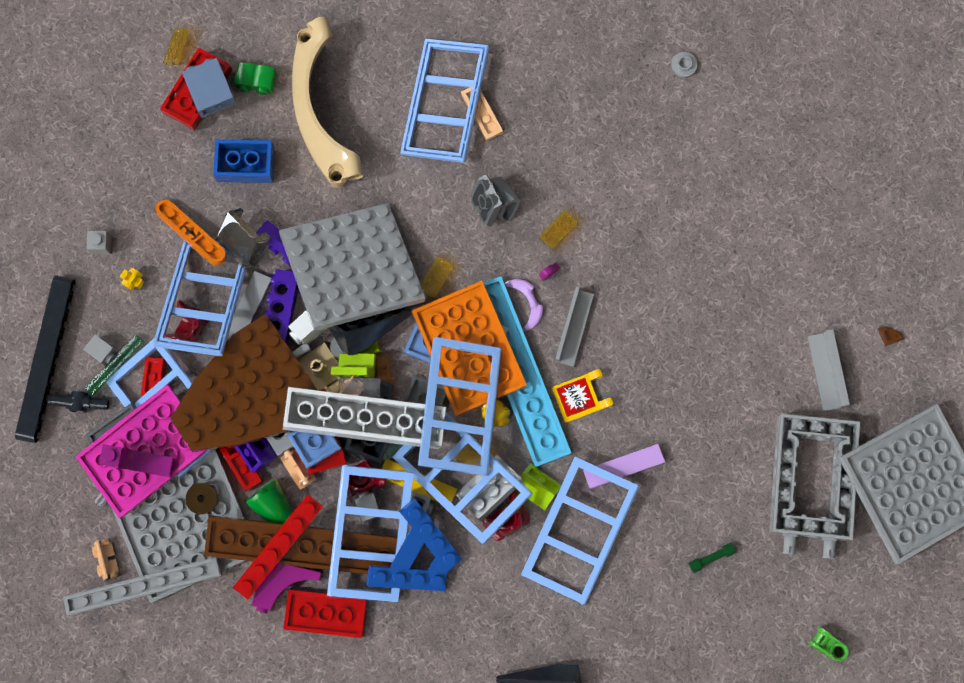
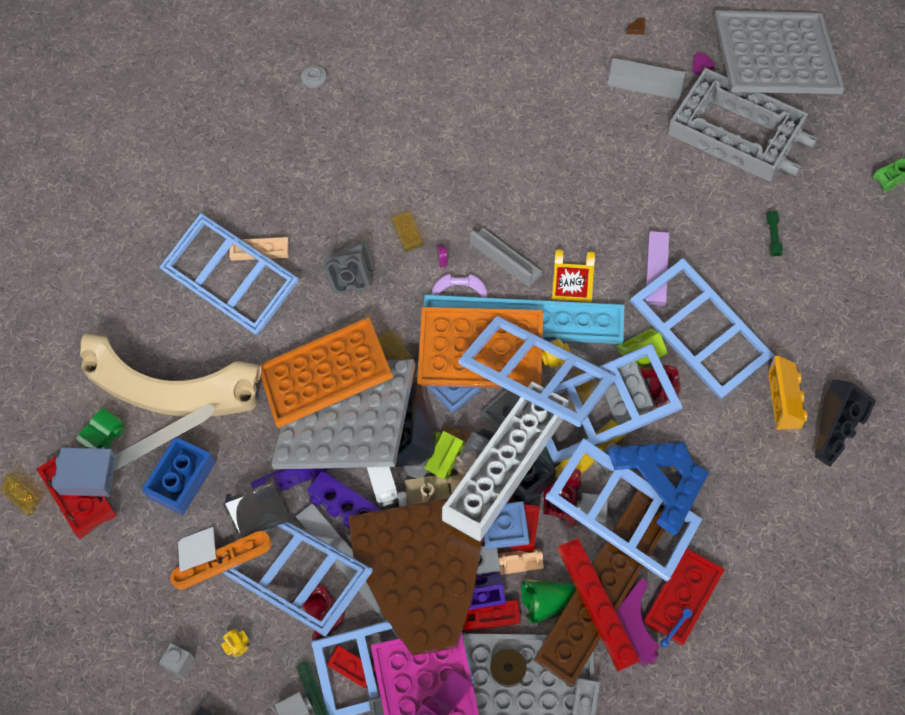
camera: 65 degrees left, 15 degrees down
(192, 208) = (196, 549): none -> white sticker
(270, 129) = (163, 435): none -> white sticker
(276, 613) = (686, 614): none -> blue hinge
(381, 230) = (324, 372): none -> orange plate
(546, 631) = (786, 394): none -> light orange slope
(874, 416) = (701, 62): none -> magenta tile

